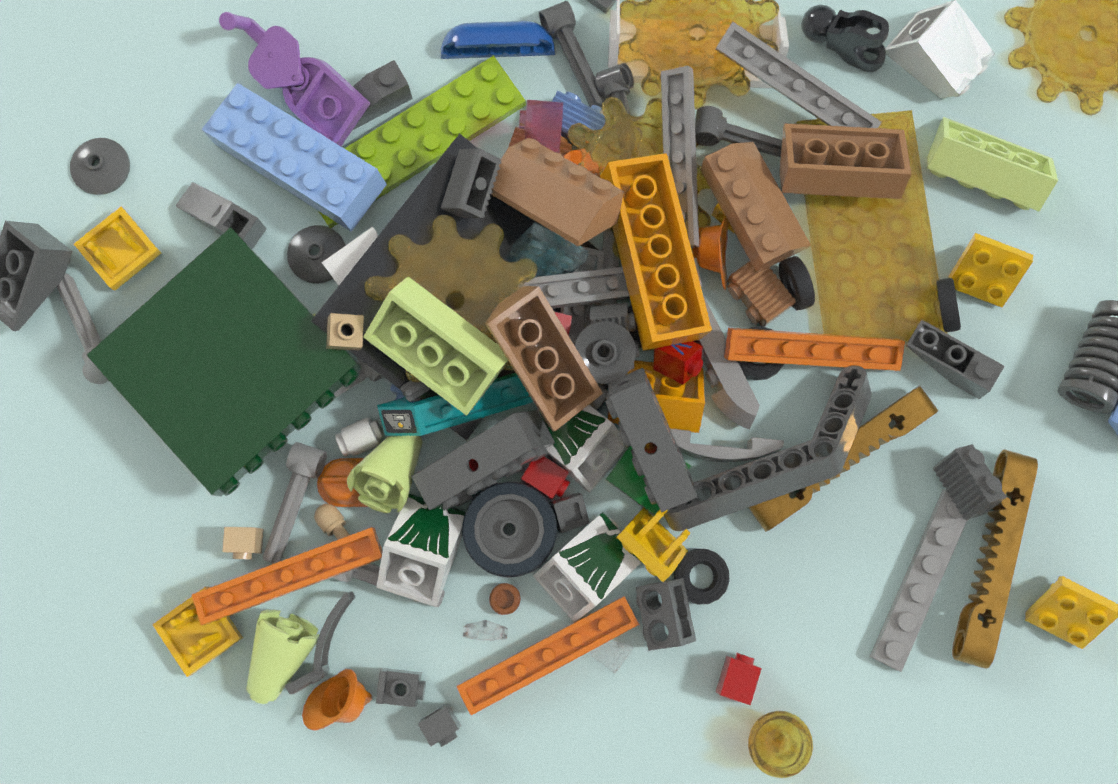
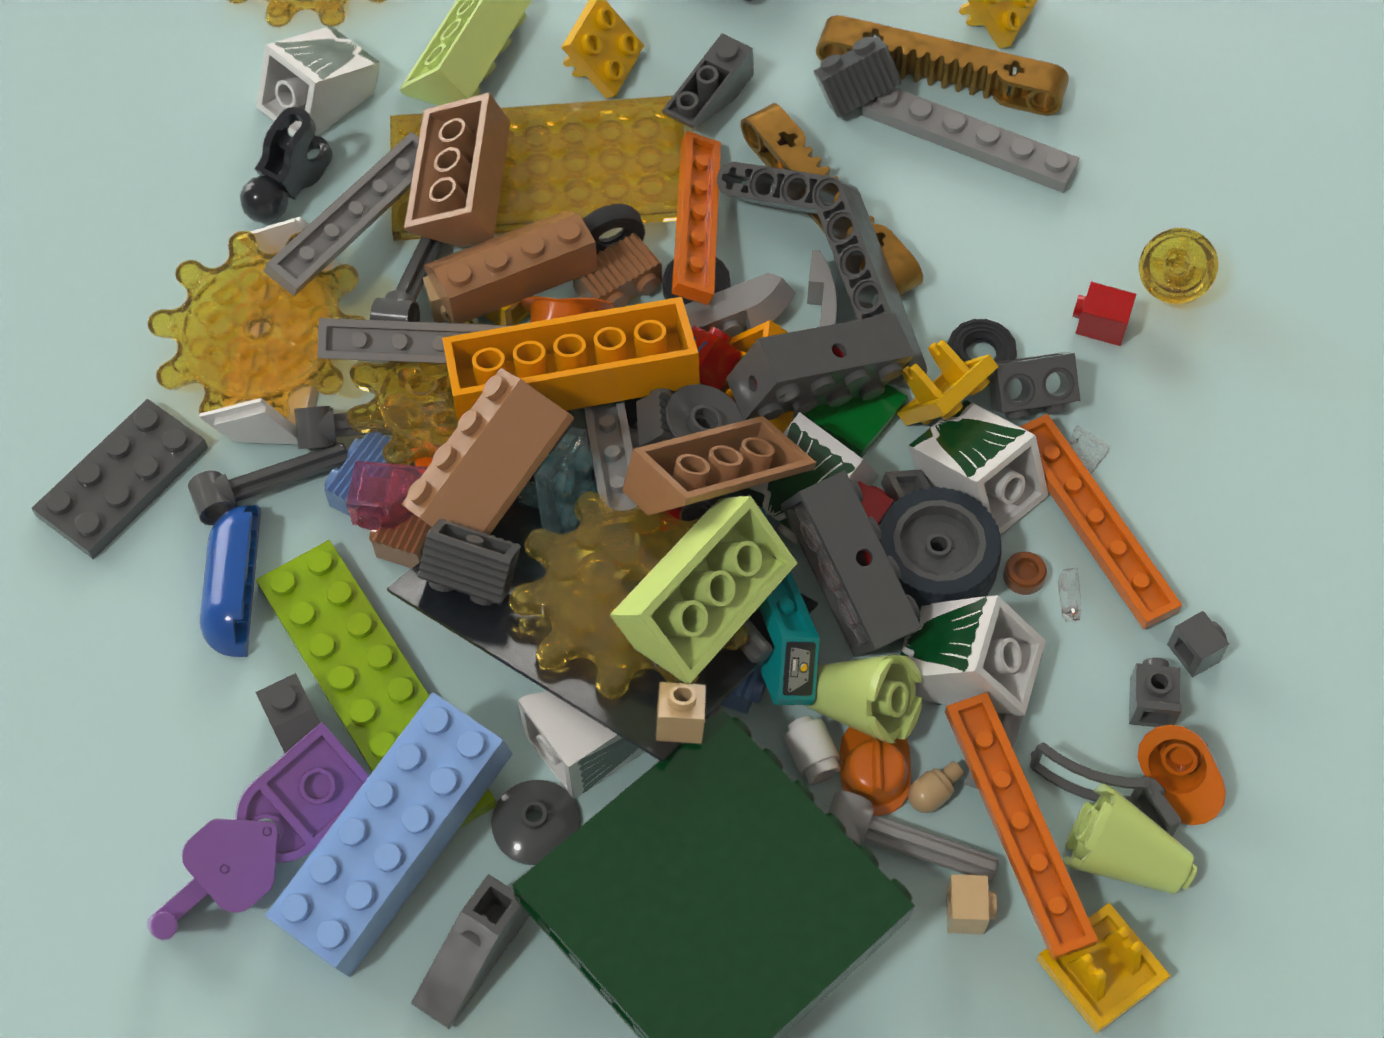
camera: 85 degrees left, 20 degrees down
(948, 305) = (643, 83): black tyre -> none

